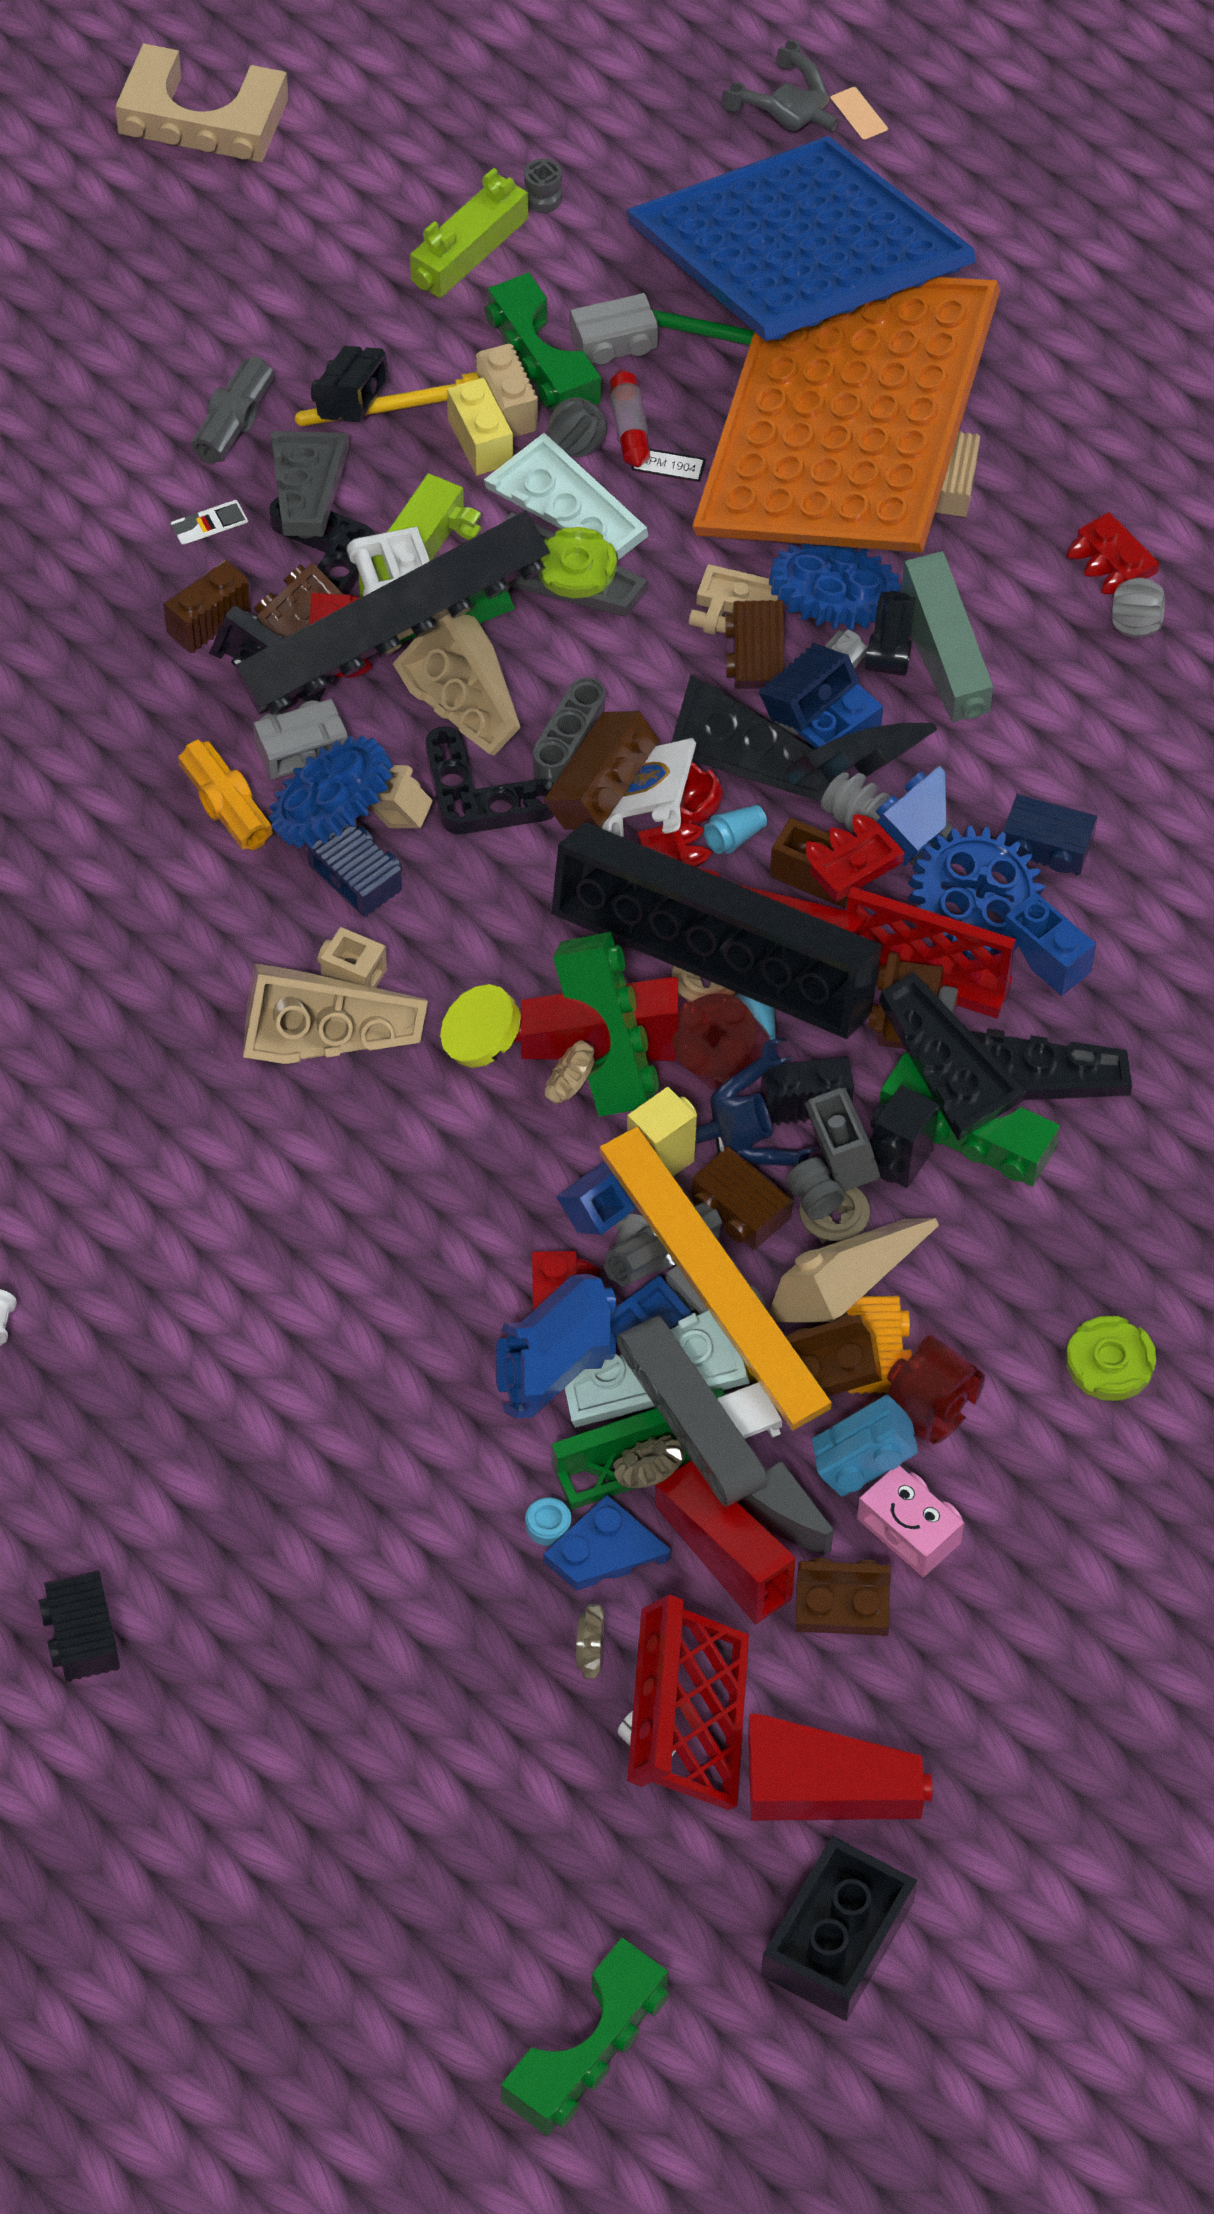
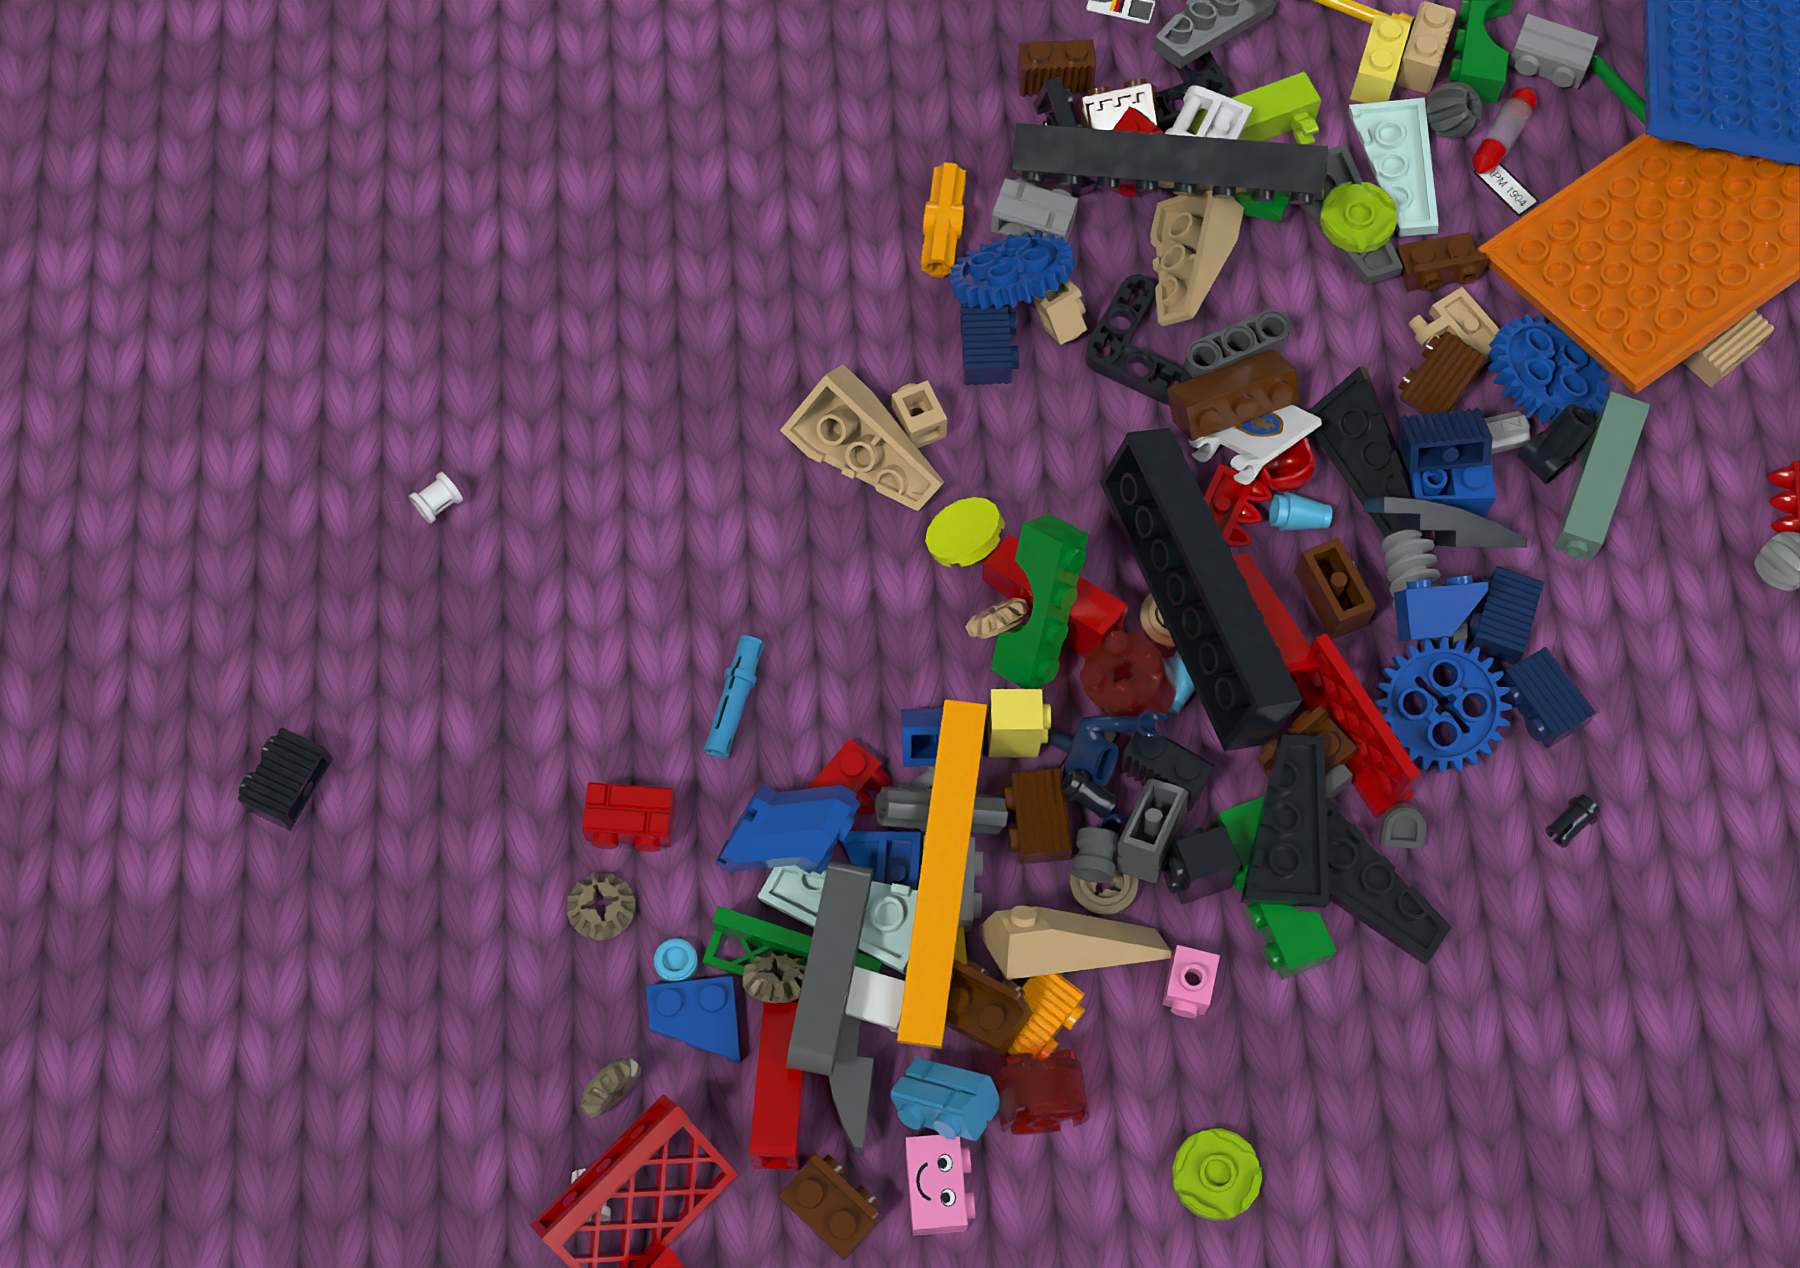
camera: 40 degrees right, 10 degrees up
(398, 1274) = (739, 681): none -> dark azure pin
(407, 1438) = (629, 816): none -> red brick
(447, 1544) = (617, 914): none -> dark tan gear
(672, 557) = (1440, 262): none -> reddish brown bracket
(758, 1147) = (1081, 789): none -> black pin
(853, 859) = (1354, 609): red plate -> none
(968, 1232) = (1190, 981): none -> bright pink brick
(969, 791) = (1505, 615): none -> dark blue brick
(1025, 1006) = (1402, 827): none -> dark grey tile
(1051, 943) = (1466, 790): blue slope -> none
(1146, 901) = (1573, 820): none -> black pin

